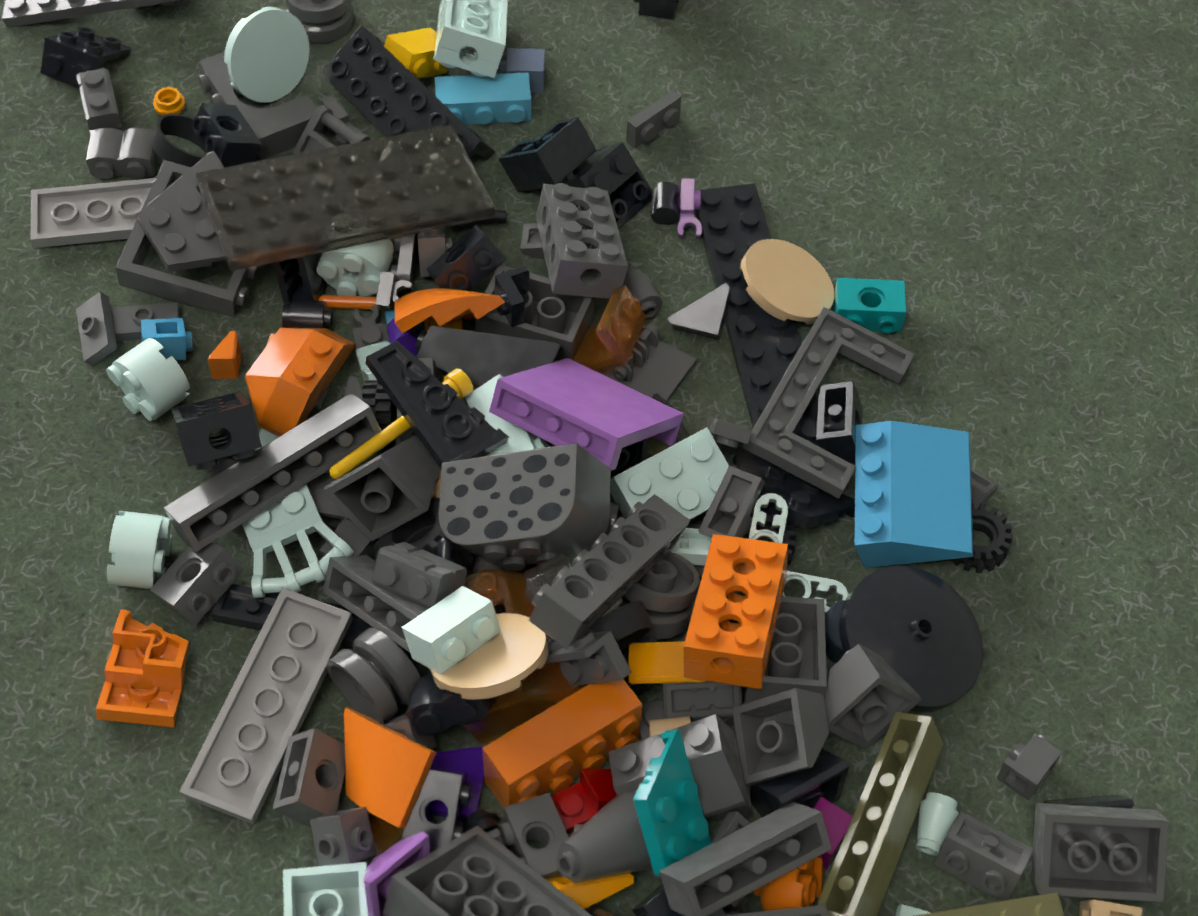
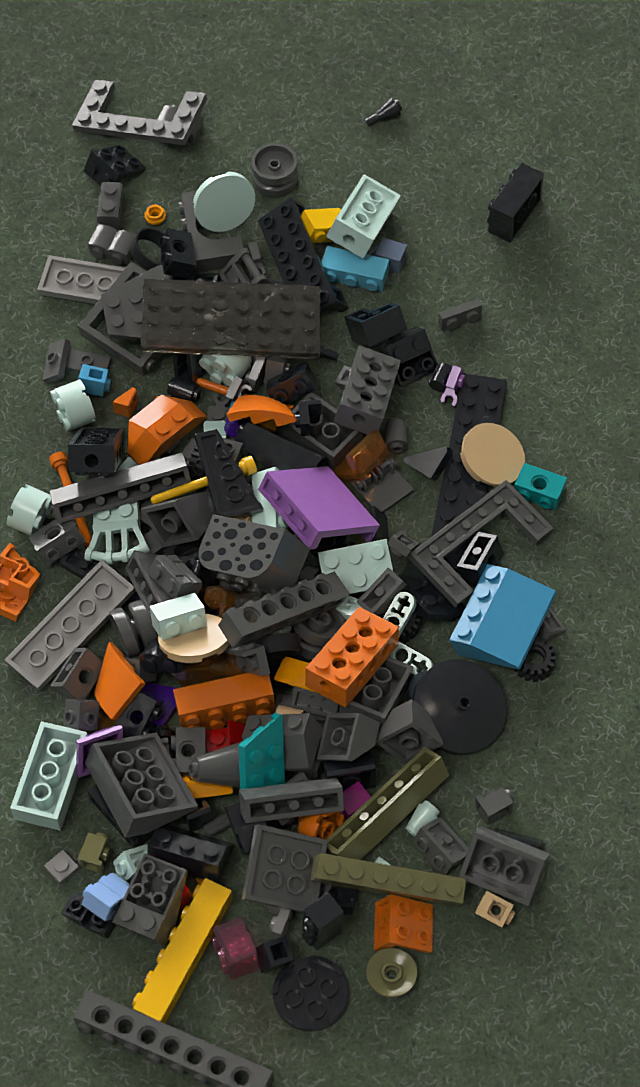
camera: 25 degrees right, 5 degrees up
(156, 469) = (60, 463): none -> orange piece

